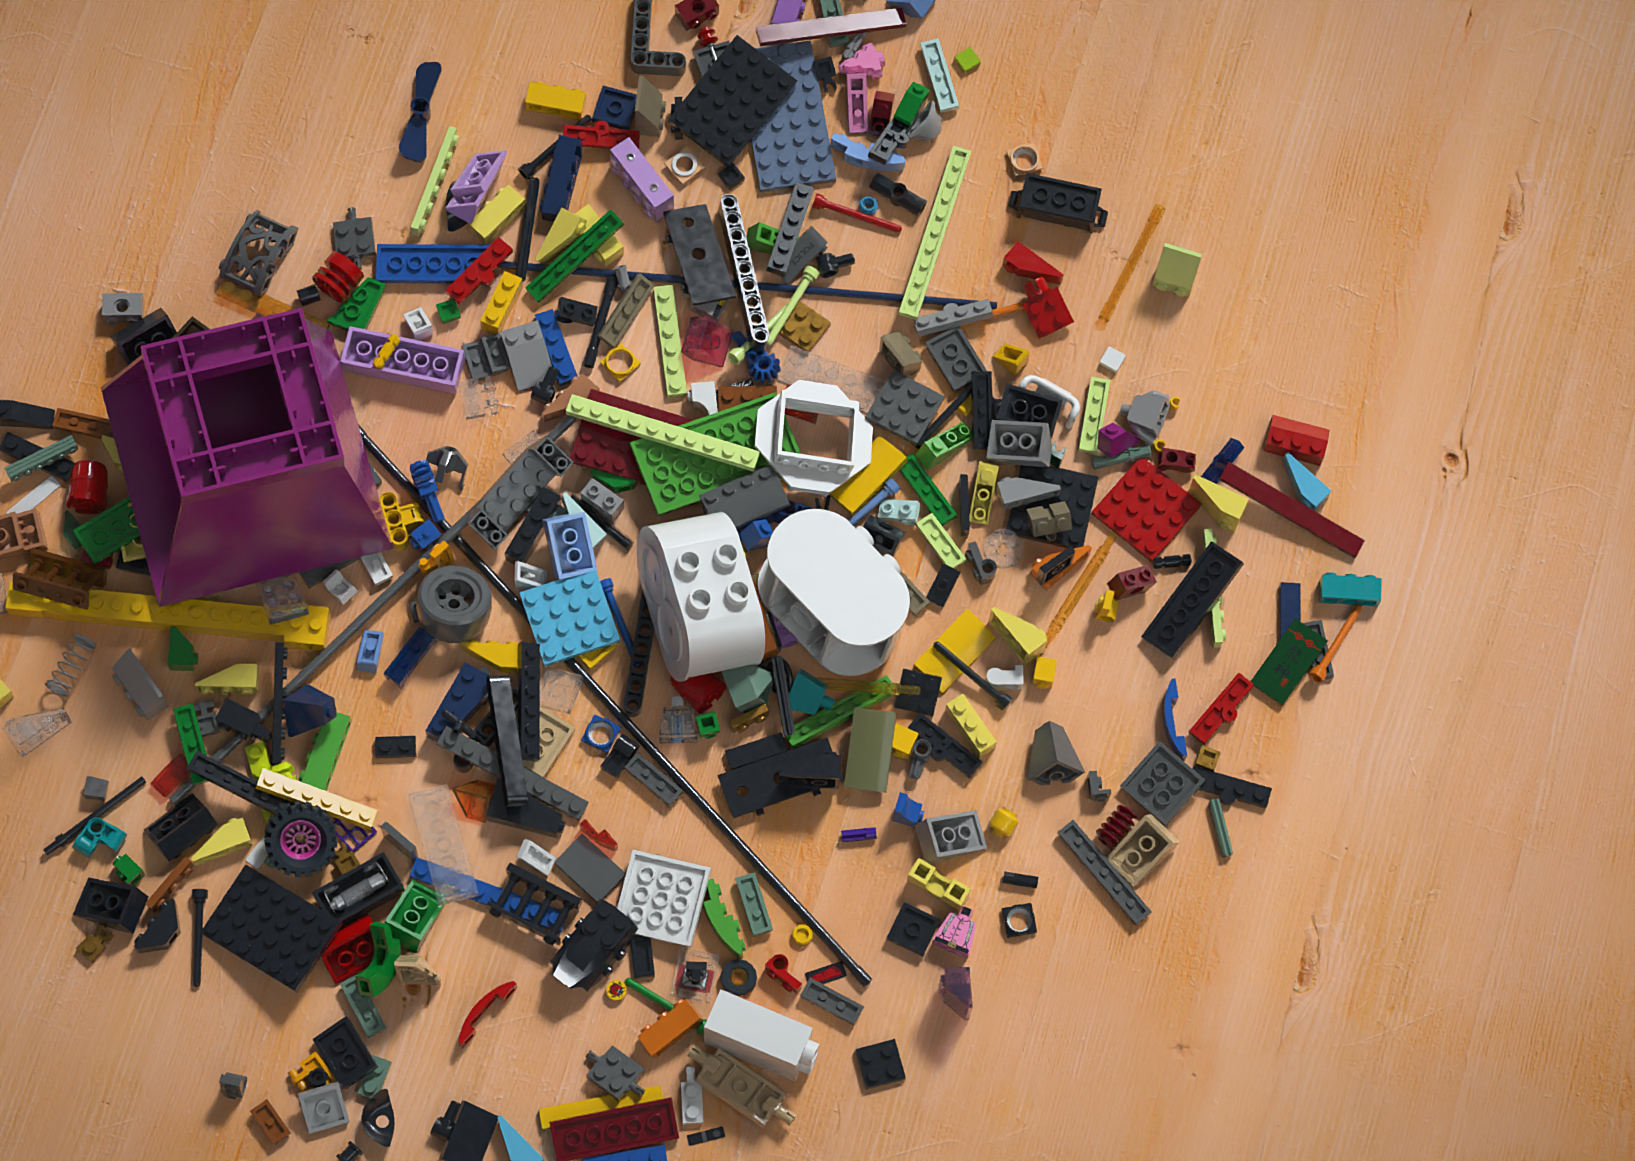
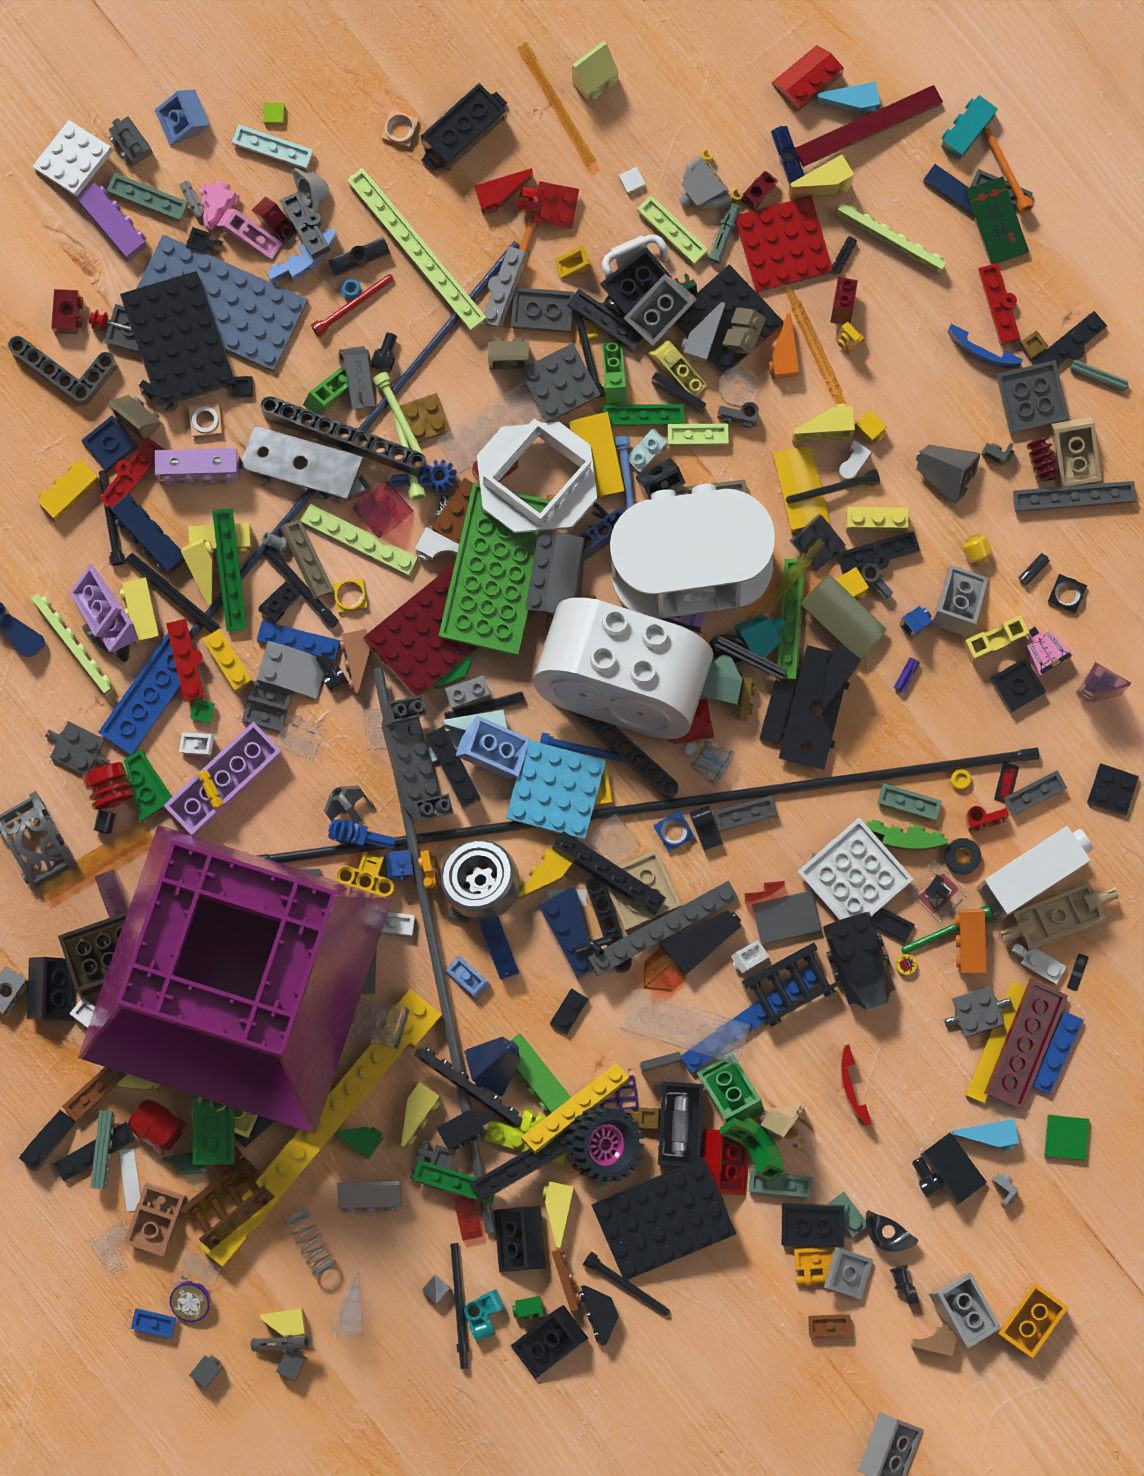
camera: 50 degrees left, 10 degrees up
(93, 946) = (574, 1380): pearl gold plate -> none
(233, 1085) = (777, 1336): dark grey plate -> none
(258, 854) = (585, 1185): white sticker -> none
(315, 1073) = (815, 1262): black plate -> none
(339, 587) = (395, 967): white bracket -> none
(507, 740) = (635, 914): black beam -> none
(529, 576) = (495, 799): white slope -> none
(662, 432) = (449, 602): yellowish green plate -> none
(707, 725) = (731, 737): green brick -> none
(756, 535) = (592, 583): blue slope -> none
(790, 229) = (332, 370): plate -> none
(830, 26) = (165, 208): tile -> none
(912, 103) = (285, 188): green slope -> none
(943, 585) = (737, 458): black plate -> none
(1055, 565) = (792, 353): black tile -> none
(1114, 440) = (709, 227): magenta slope -> none
(1192, 600) = (893, 262): black plate -> none

